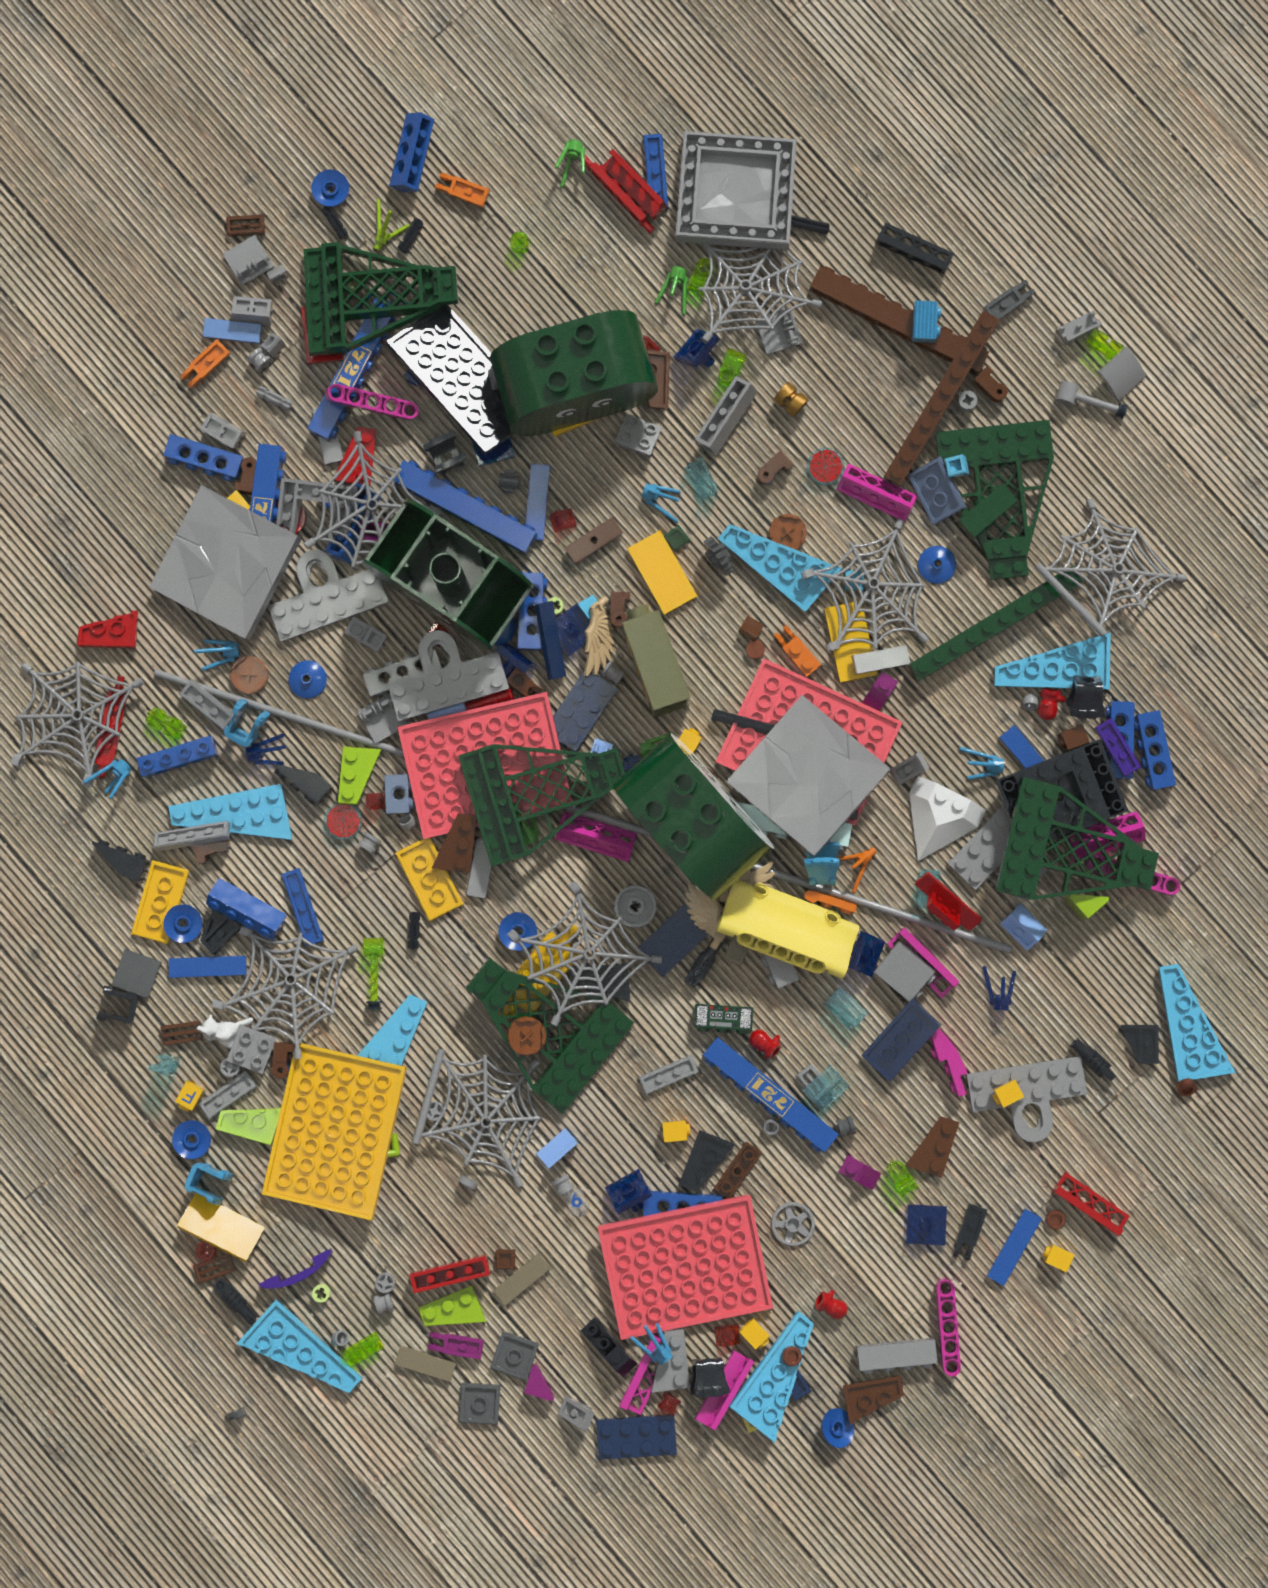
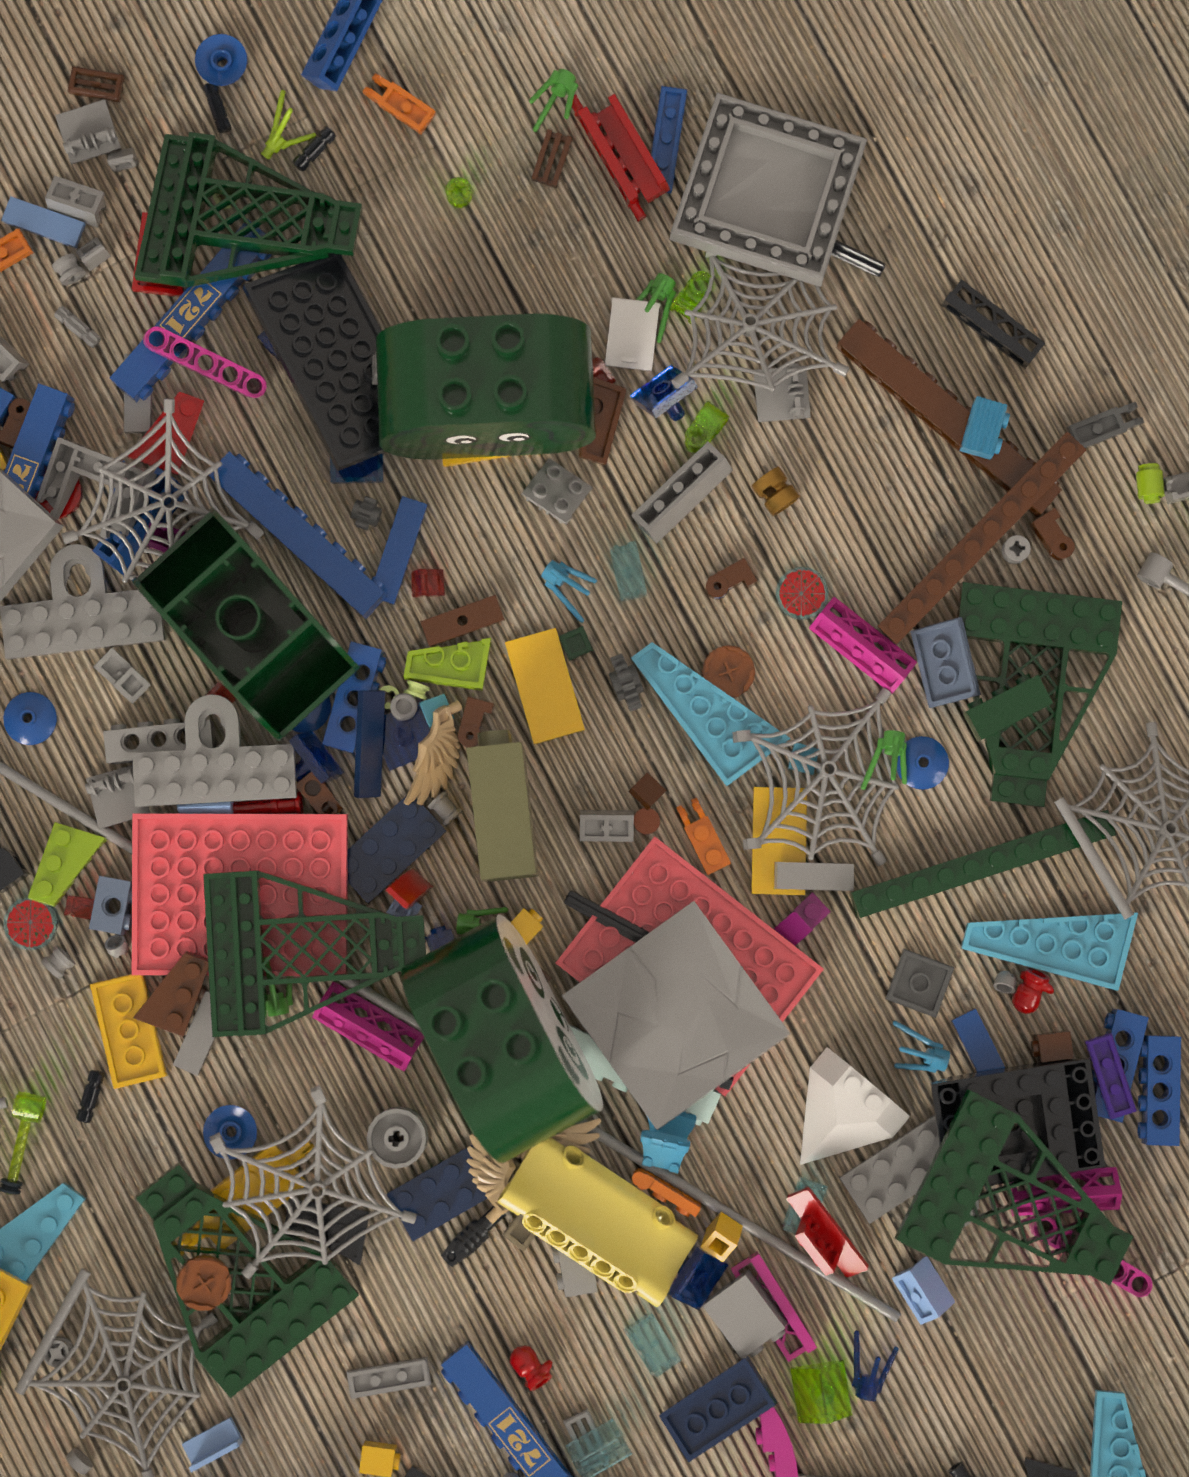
camera: 15 degrees right, 0 degrees up
(441, 445) = (286, 443): black piece -> none
(567, 609) = (403, 707): none -> light grey tile
(573, 596) = (416, 690): none -> yellowish green bush
(580, 188) = (557, 137): none -> reddish brown tile
(594, 573) = (453, 665): none -> lime wing
(602, 733) = (409, 888): none -> red slope
(664, 314) = (631, 334): none -> white container
(723, 1018) = (481, 1318): brick -> none
(728, 658) = (607, 825): none -> light grey hinge
(862, 859) = (725, 1144): orange plant -> none
(875, 921) = (721, 1236): none -> yellow brick
(909, 768) = (818, 1035): light grey slope -> none
(914, 556) = (894, 746): none -> bright green plant
(957, 466) = (980, 636): medium azure slope -> none
(969, 1013) = (821, 1392): none -> clear neon green slope
(971, 717) = (919, 983): none -> dark grey tile
(1049, 333) = (1150, 483): none -> lime brick
(1085, 905) = (1019, 1284): lime slope -> none
(1086, 697) = (1083, 996): black piece -> none

